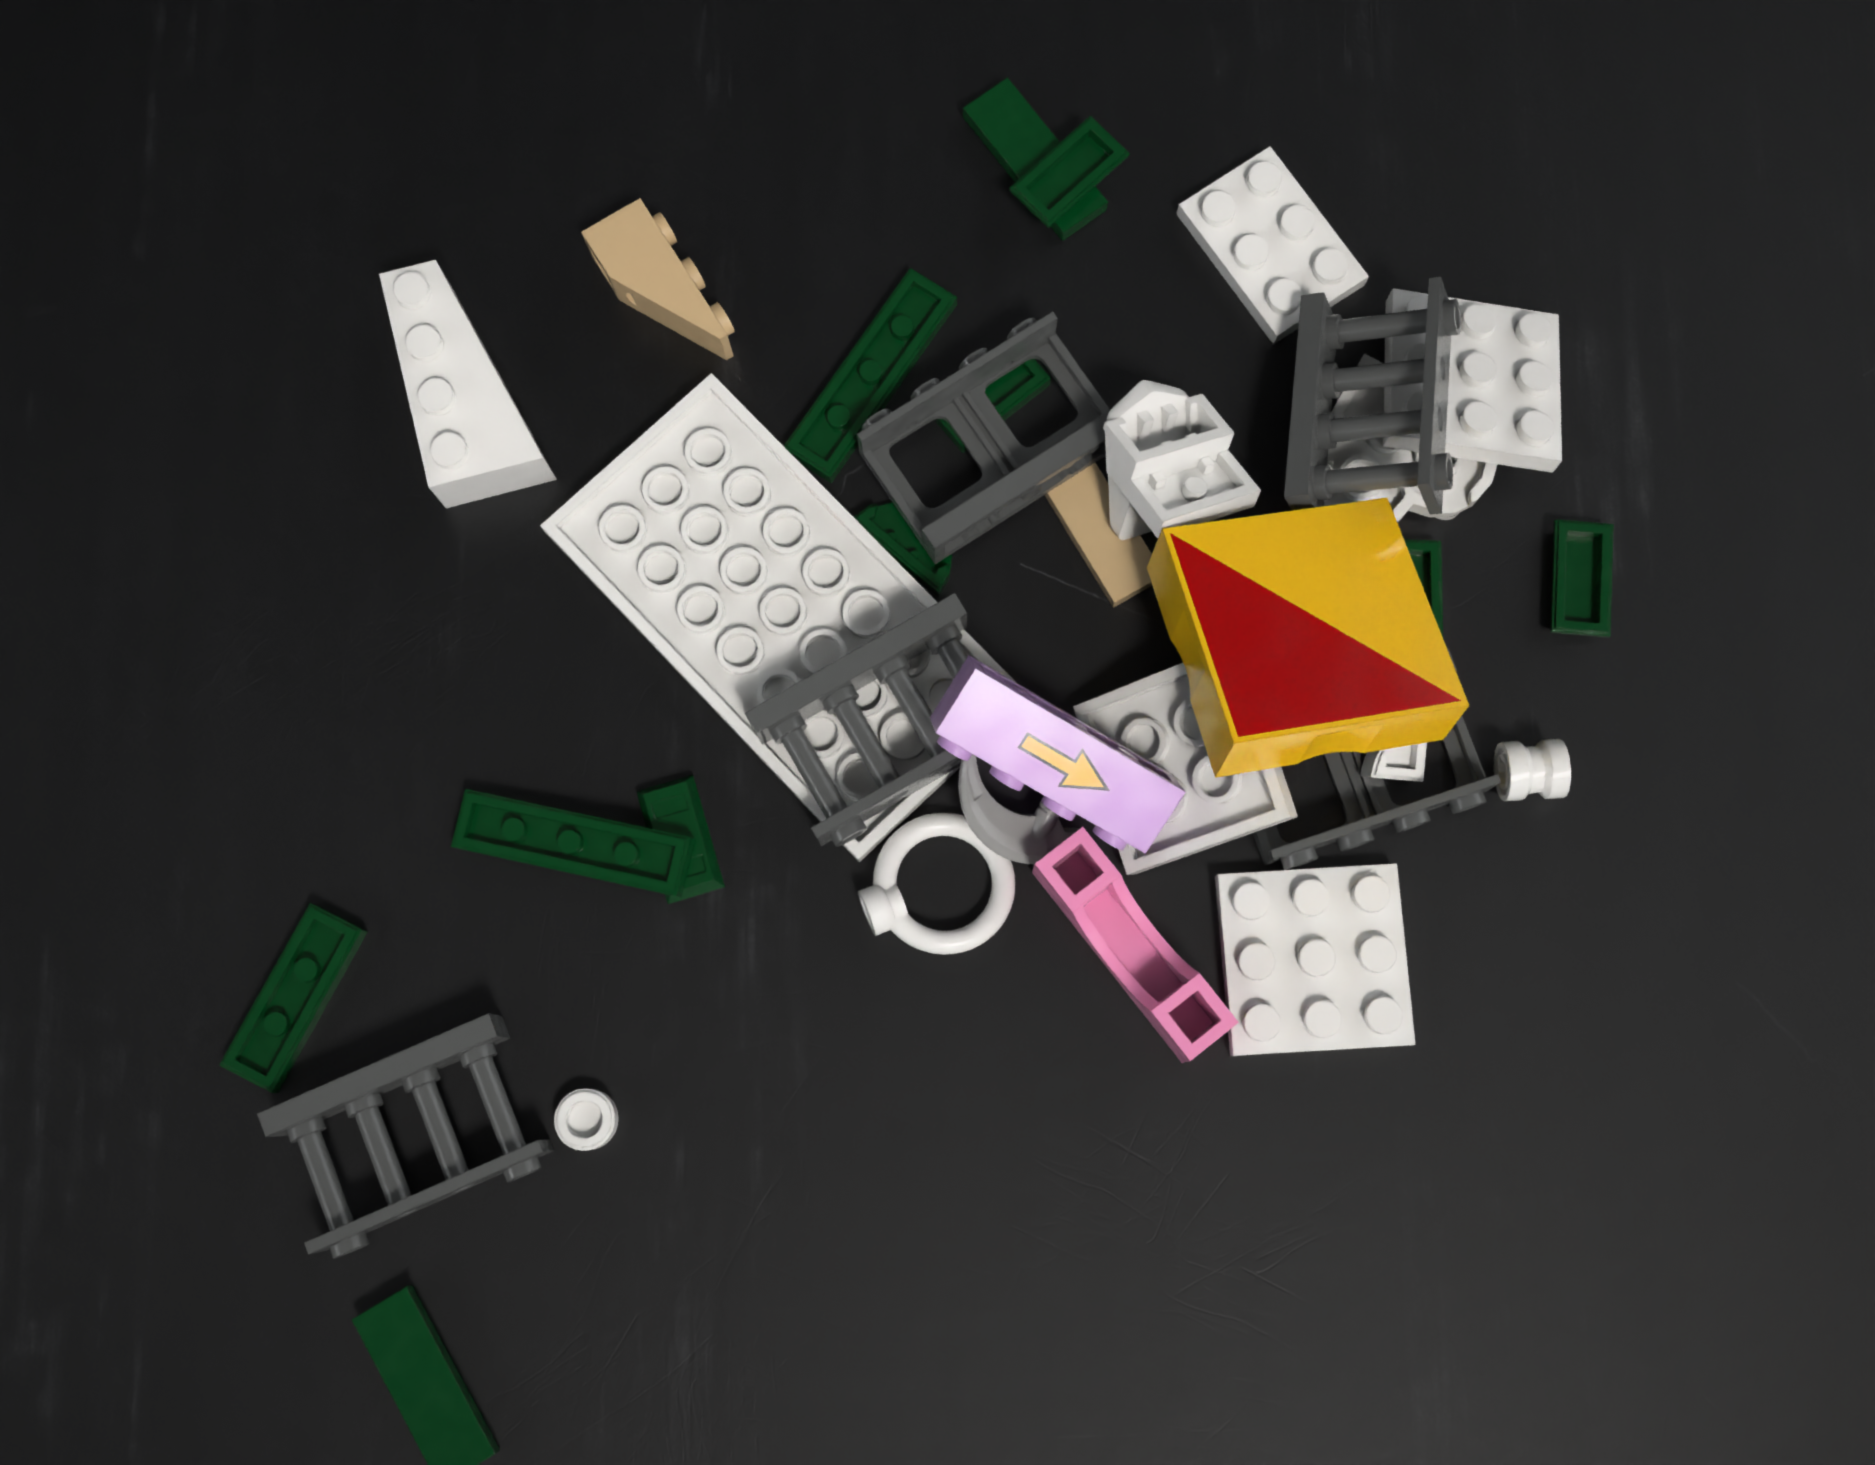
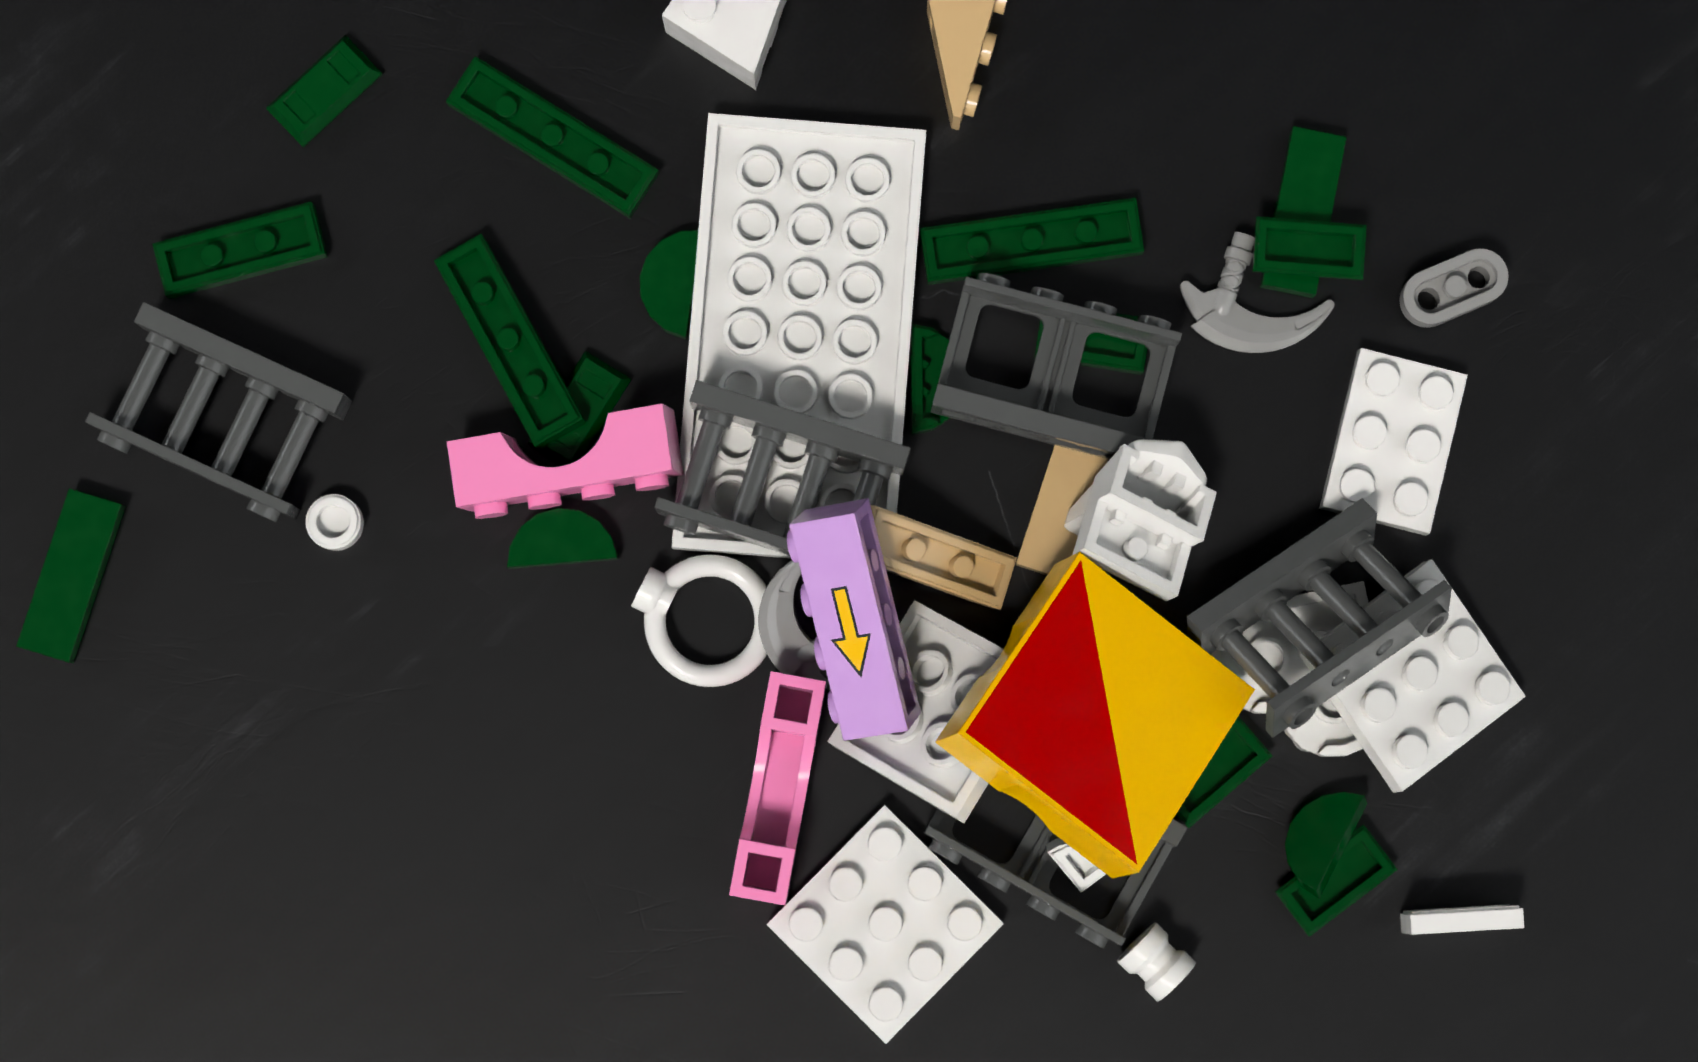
camera: 45 degrees right, 5 degrees up
(233, 814) = (324, 91): none -> dark green tile
(442, 666) = (552, 137): none -> dark green tile
(644, 676) = (669, 282): none -> dark green tile
(752, 816) = (634, 448): none -> bright pink arch
(769, 945) = (560, 539): none -> dark green tile
(1066, 651) = (943, 559): none -> tan tile
(1076, 284) = (1234, 327): none -> light grey piece
(1192, 103) = (1451, 287): none -> light grey plate
(1539, 560) = (1320, 836): none -> dark green tile
(1696, 508) = (1461, 919): none -> white tile

